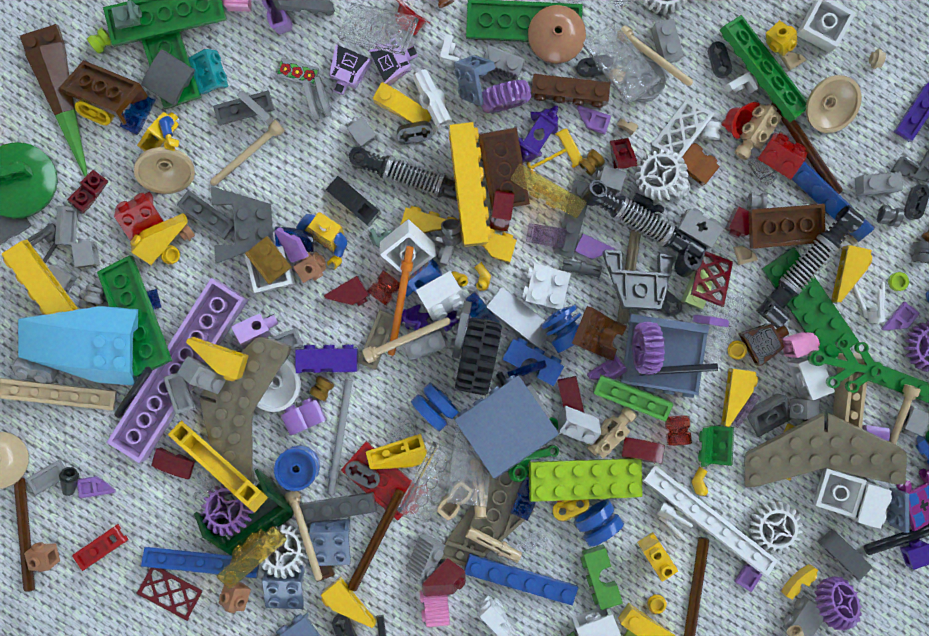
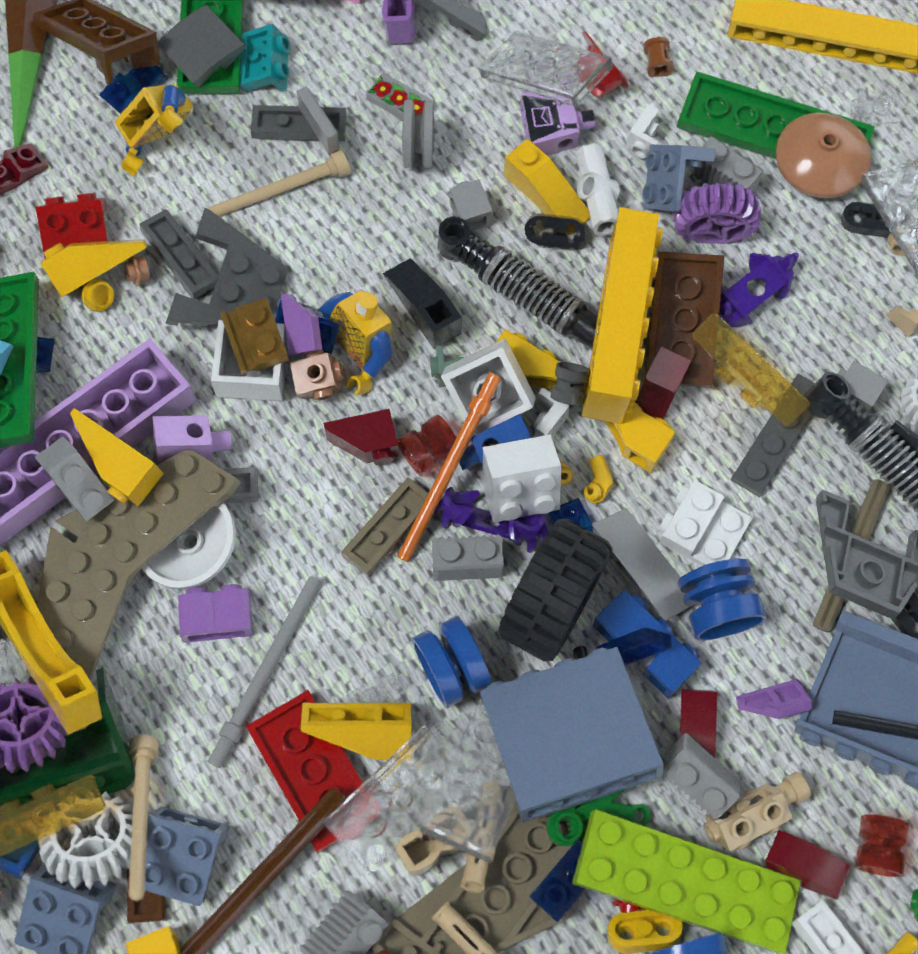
camera: 15 degrees right, 20 degrees down
(93, 113) = (74, 68): yellow plate -> none
(164, 170) = (131, 179): tan dish -> none
(179, 393) = (23, 499): light grey tile -> none
(305, 459) = (186, 710): blue wheel -> none
(321, 388) = (264, 576): pearl gold wheel -> none
(327, 359) = (289, 528): dark purple wedge -> none
(338, 507) = (219, 793): dark grey plate -> none
(348, 68) = (480, 113): torso -> none
(360, 478) = (277, 749): dark grey beam -> none
(372, 353) = (373, 539): tan piece -> none
(459, 329) = (548, 514): dark grey plate -> none
(546, 235) = (726, 445): clear purple tile -> none
(570, 90) = (824, 238): reddish brown brick -> none
(570, 148) = (800, 326): yellow piece -> none
(581, 268) = (773, 516): dark grey pin -> none
(591, 247) = (795, 487): medium lavender tile -> none
(592, 162) = (835, 353): pearl gold wheel -> none
(594, 120) = (851, 296): medium lavender tile -> none
(597, 333) = (775, 616): reddish brown plate -> none
(622, 154) = (888, 358): dark red slope -> none
(632, 397) = (813, 756): bright green fence -> none
(648, 348) = (862, 669): medium lavender gear -> none

